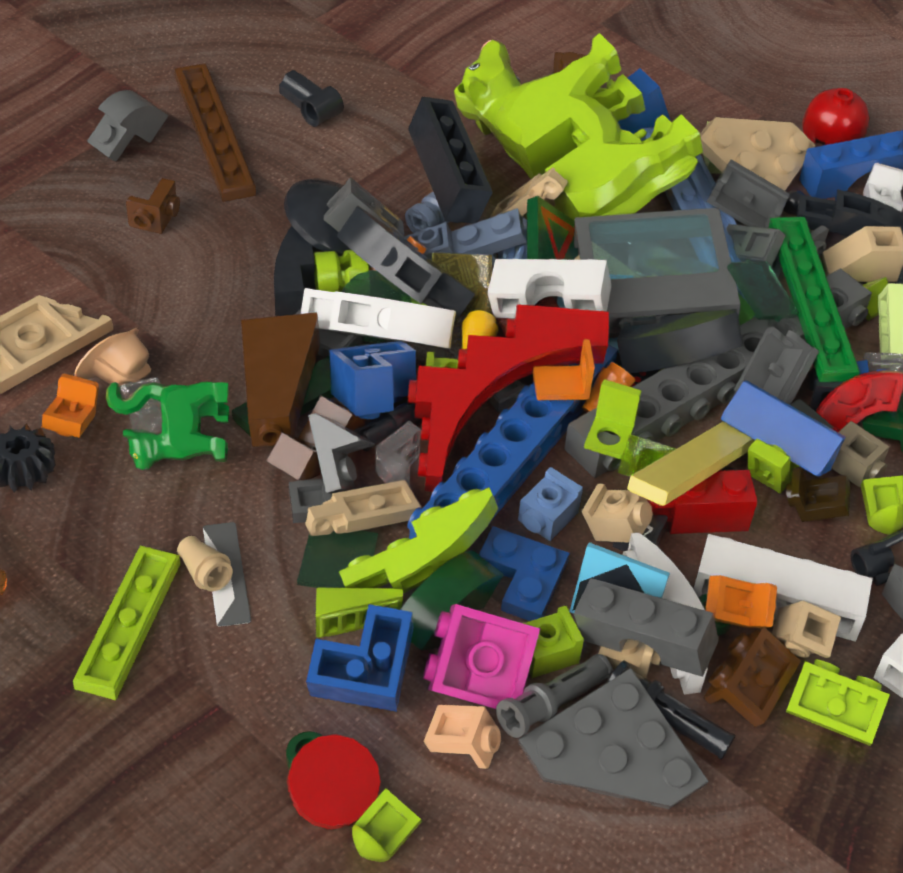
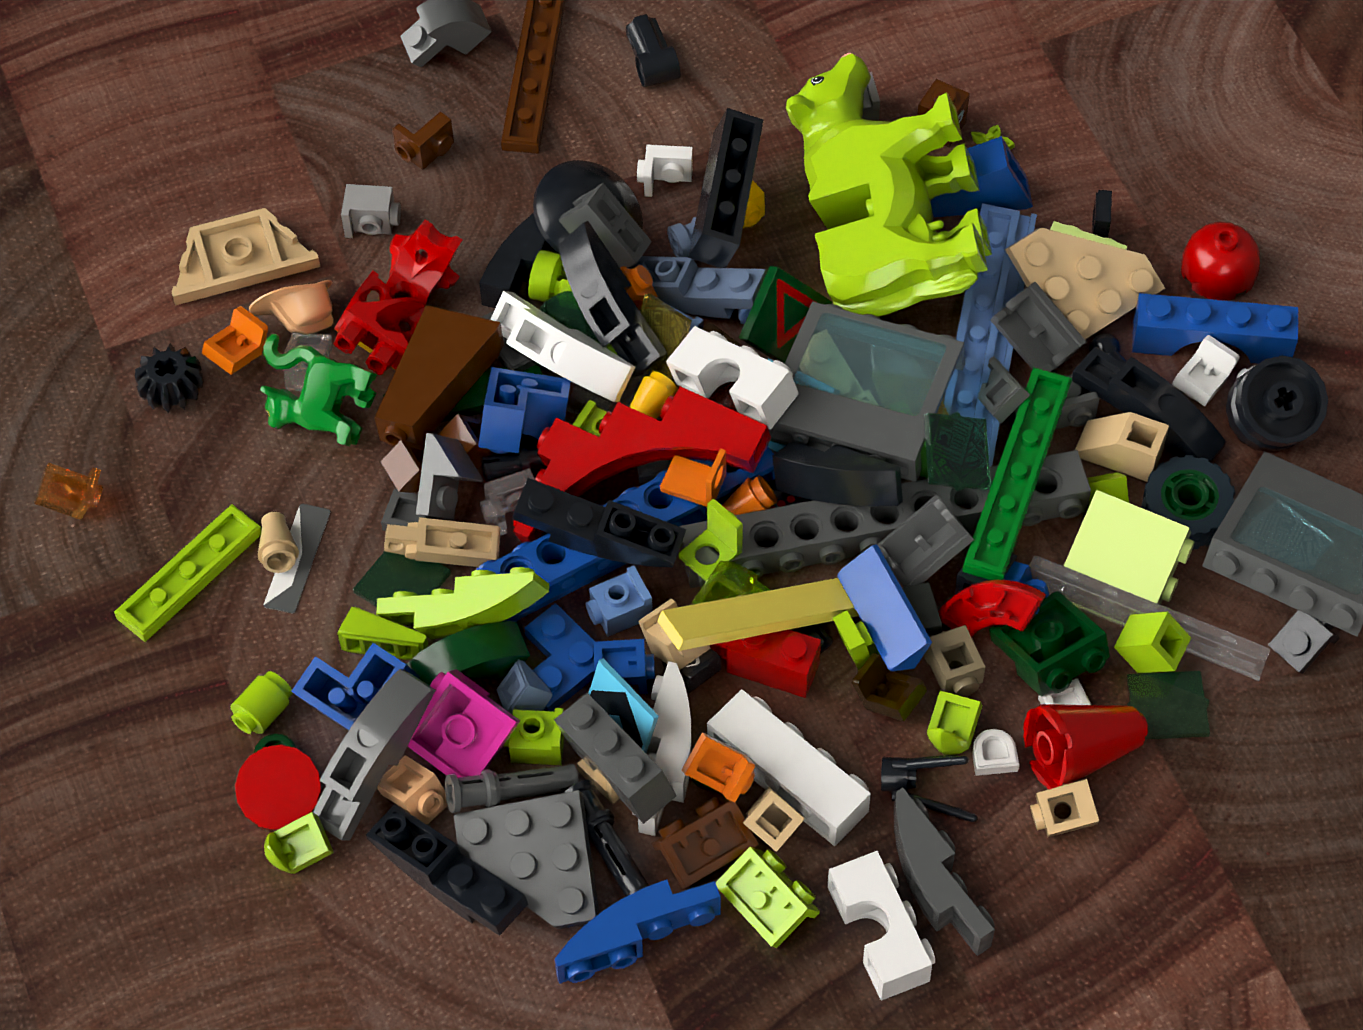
camera: 30 degrees right, 10 degrees up
(137, 271) = (369, 210): none -> light grey brick
(208, 321) = (411, 274): none -> red hips
(270, 709) = (261, 703): none -> lime brick
(375, 168) = (665, 164): none -> white bracket
(415, 710) = (367, 749): none -> dark grey slope
(513, 603) = (523, 689): none -> sand blue slope
(517, 445) = (597, 530): none -> black slope
(545, 186) = (792, 256): tan hinge -> none
(545, 799) = (445, 872): none -> black slope
(573, 547) = (628, 660): none -> blue bracket
(733, 107) = (1102, 213): none -> black tile
(744, 776) = (618, 931): none -> blue slope

